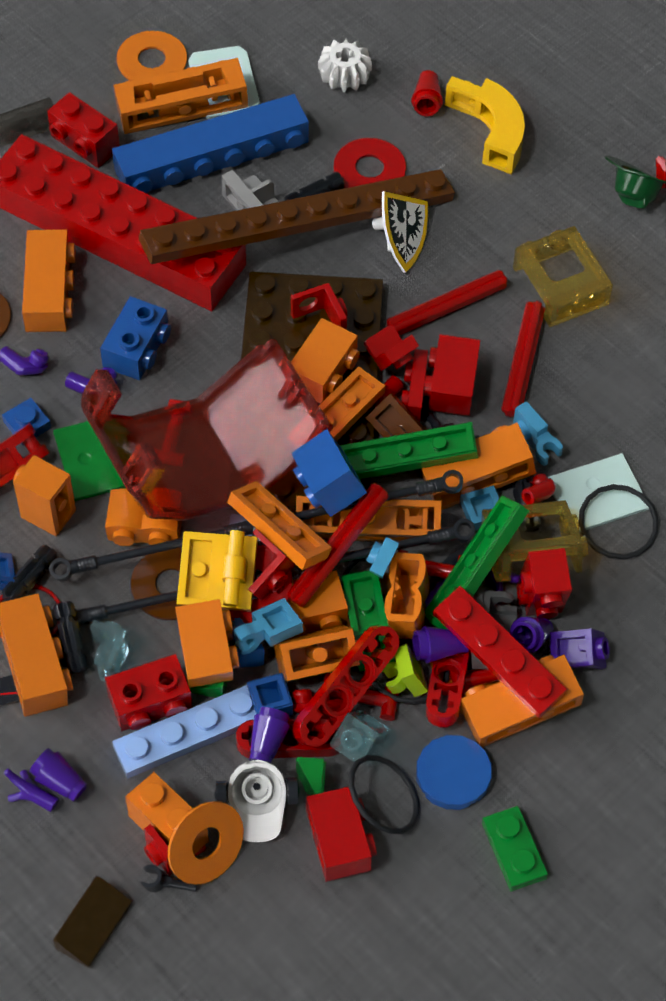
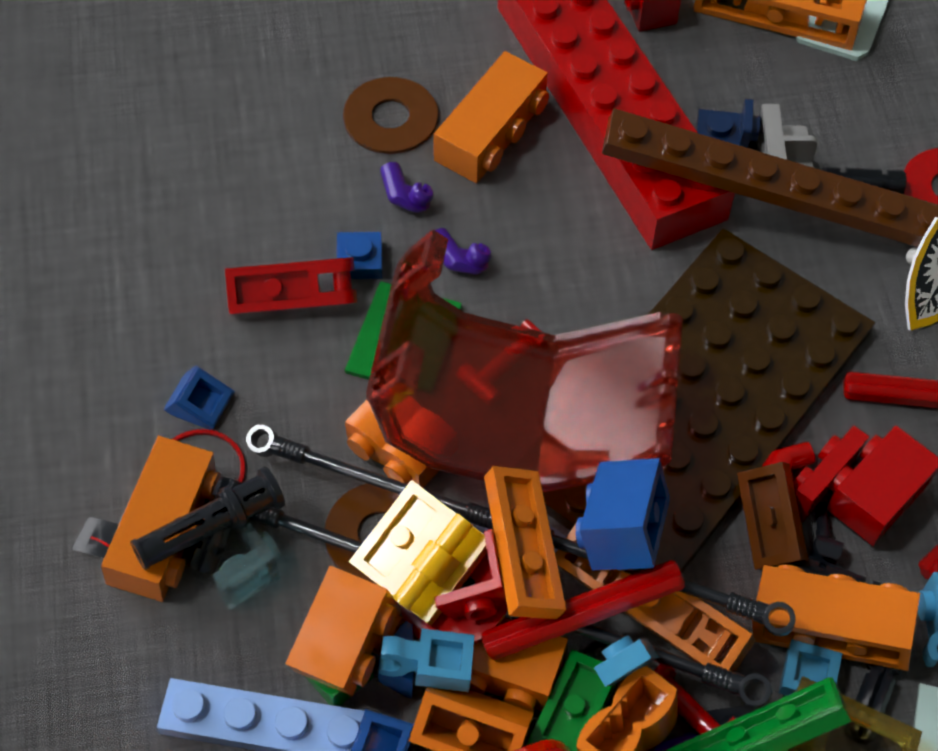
camera: 35 degrees right, 0 degrees up
(29, 574) = (230, 425): black axle -> none
(30, 791) = (41, 676): dark purple bar -> none
(44, 495) = (304, 345): orange brick -> none
(57, 774) = (82, 678): dark purple cone -> none
(77, 620) = (230, 501): none -> black pin
(135, 338) = (539, 230): blue brick -> none
(148, 693) = (245, 647): red brick -> none
(207, 202) = (730, 126): none -> dark blue bracket
(212, 144) = (780, 68): blue brick -> none
(324, 299) = (781, 305): red bracket -> none
(326, 358) = (730, 376): orange brick -> none
(351, 401) = (723, 445): orange plate -> none
(388, 348) = (824, 407): red bracket -> none
(412, 450) = (759, 546): green tile -> none
(541, 490) = (900, 698): red arm -> none

